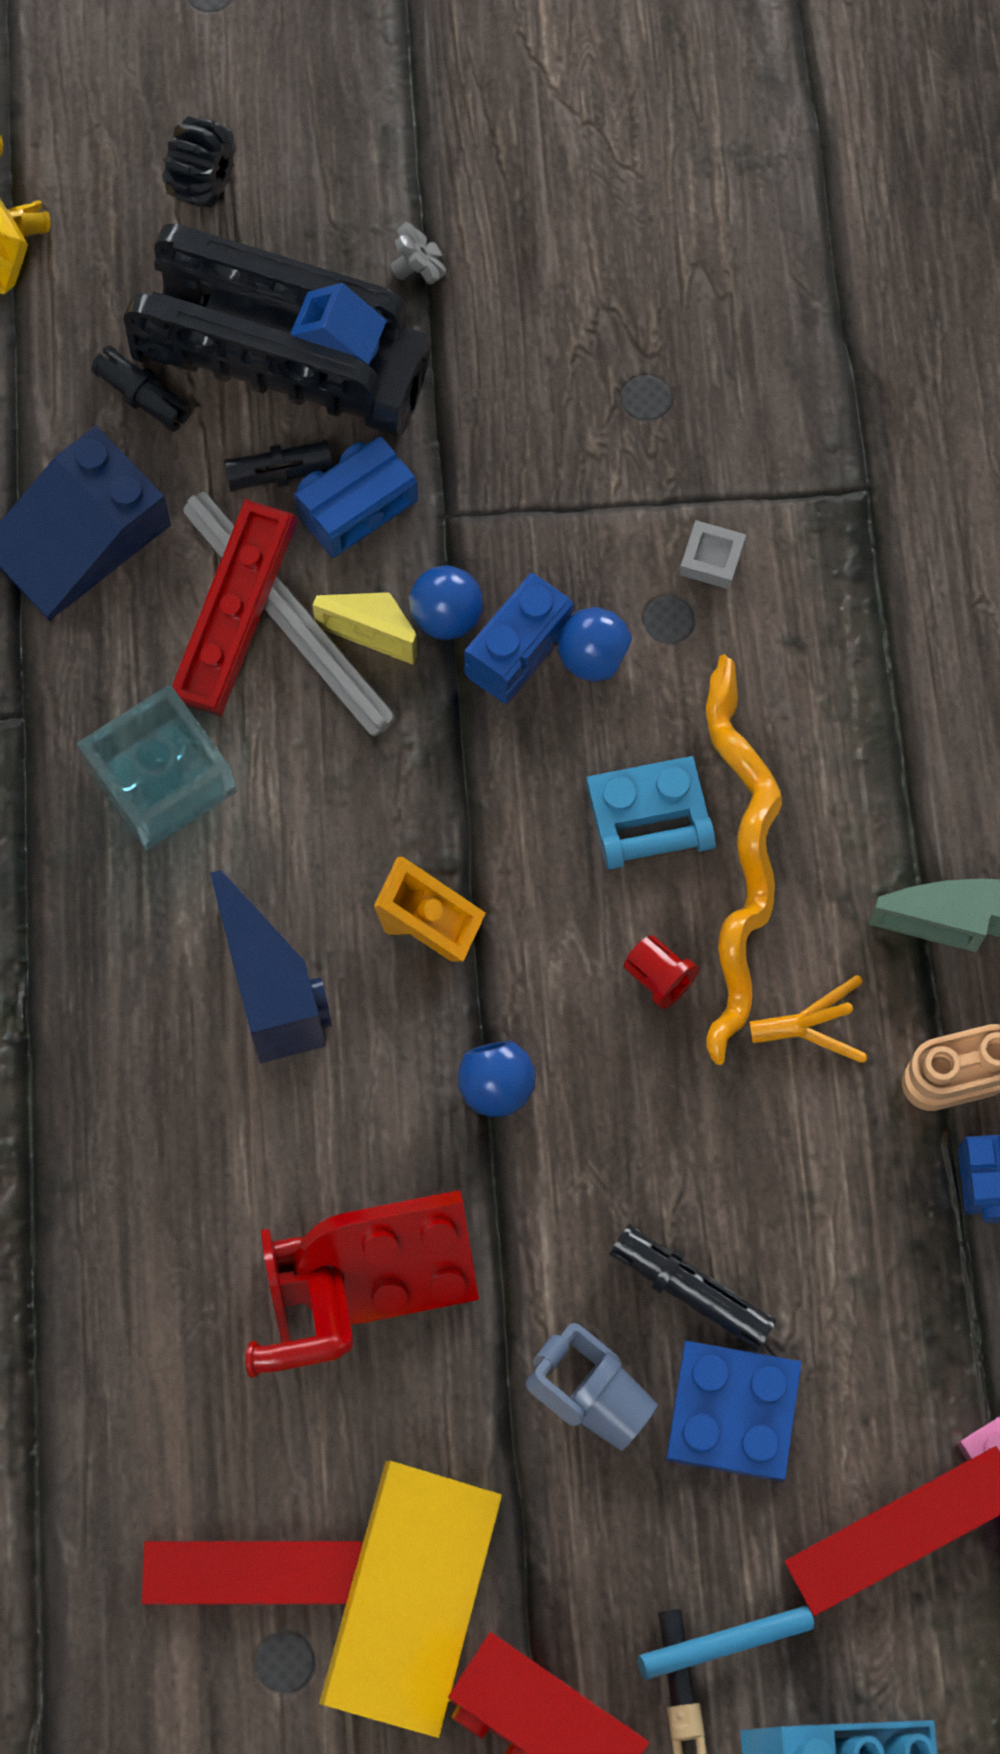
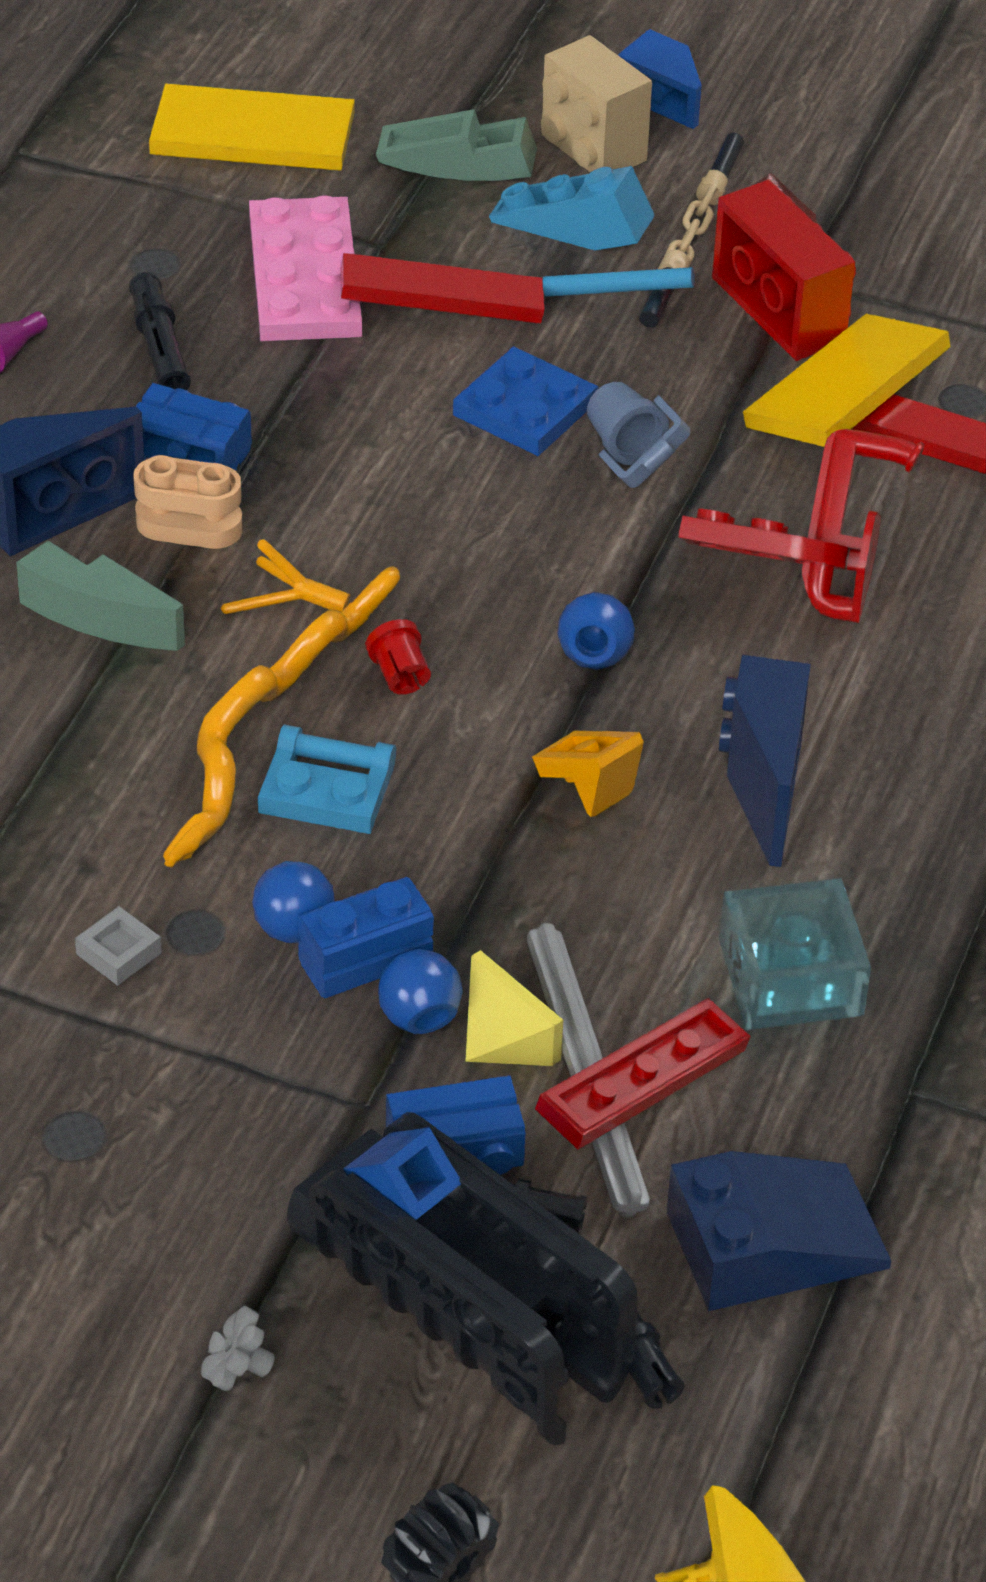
camera: 155 degrees left, 25 degrees down
(702, 1293) = (541, 498): black pin -> none

